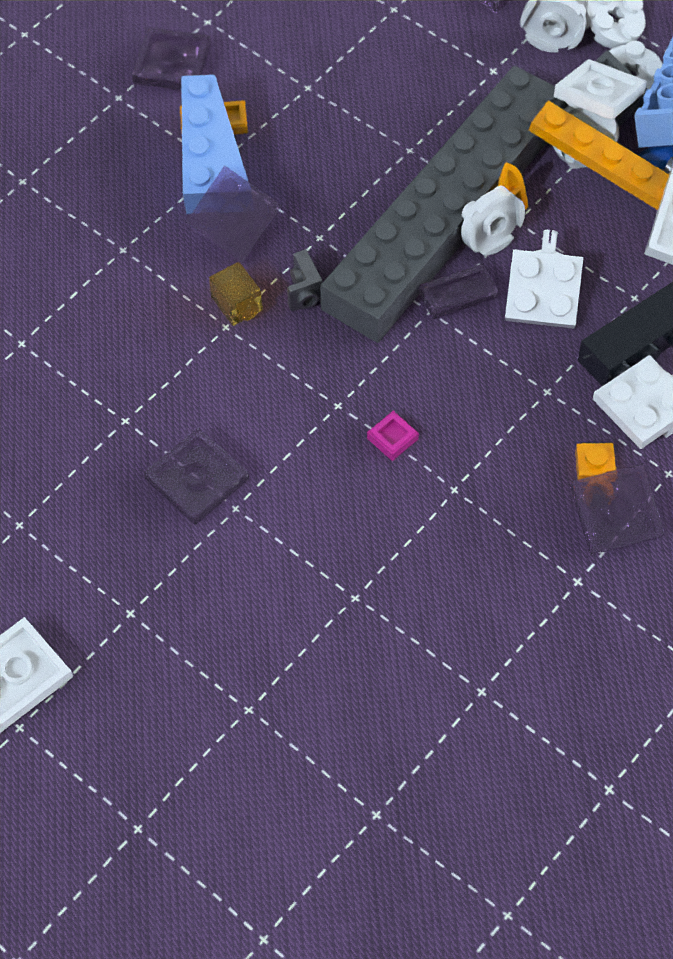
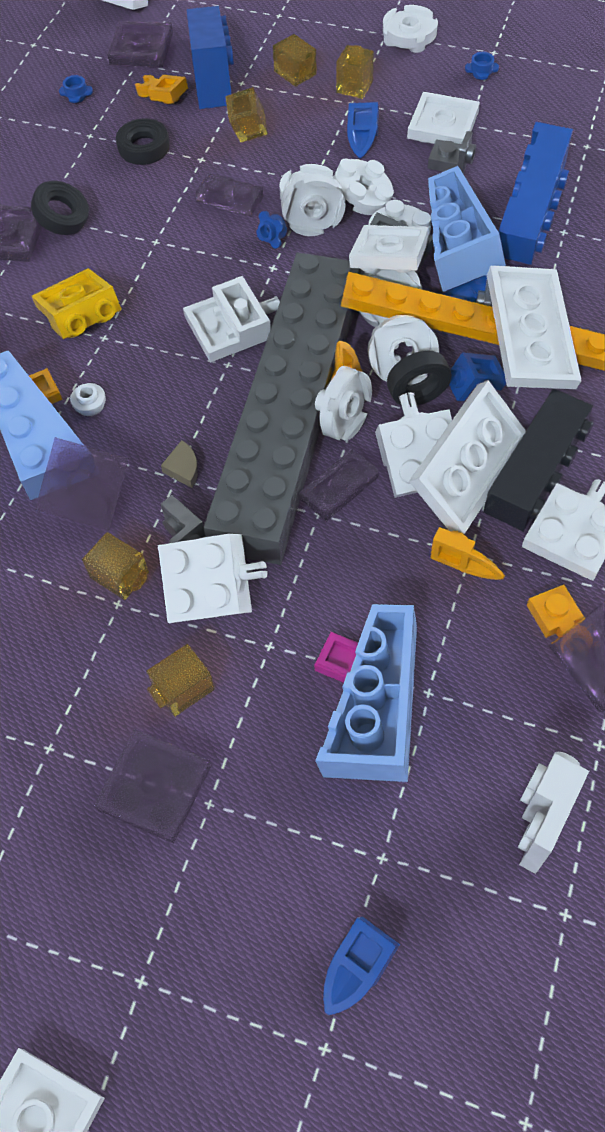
camera: 20 degrees left, 0 degrees up
(250, 404) = (179, 681): none -> clear yellow brick
(270, 141) = (88, 399): none -> white plate
(295, 47) = (77, 303): none -> yellow plate
(298, 659) = (357, 965): none -> blue plate
(306, 328) = (207, 577): none -> white plate
(328, 227) = (182, 465): none -> dark tan tile
(400, 481) = (374, 715): none -> light blue wedge
(427, 108) = (230, 319): none -> white plate
(506, 32) = (271, 229): none -> blue plate
(506, 601) = (549, 802): none -> white plate
(533, 383) = (459, 553): none -> light orange plate
(573, 207) = (413, 366): none -> black tyre
(578, 305) = (468, 458): none -> white plate
(585, 178) = (391, 333): none -> white plate
(627, 232) = (472, 370): none -> blue bracket

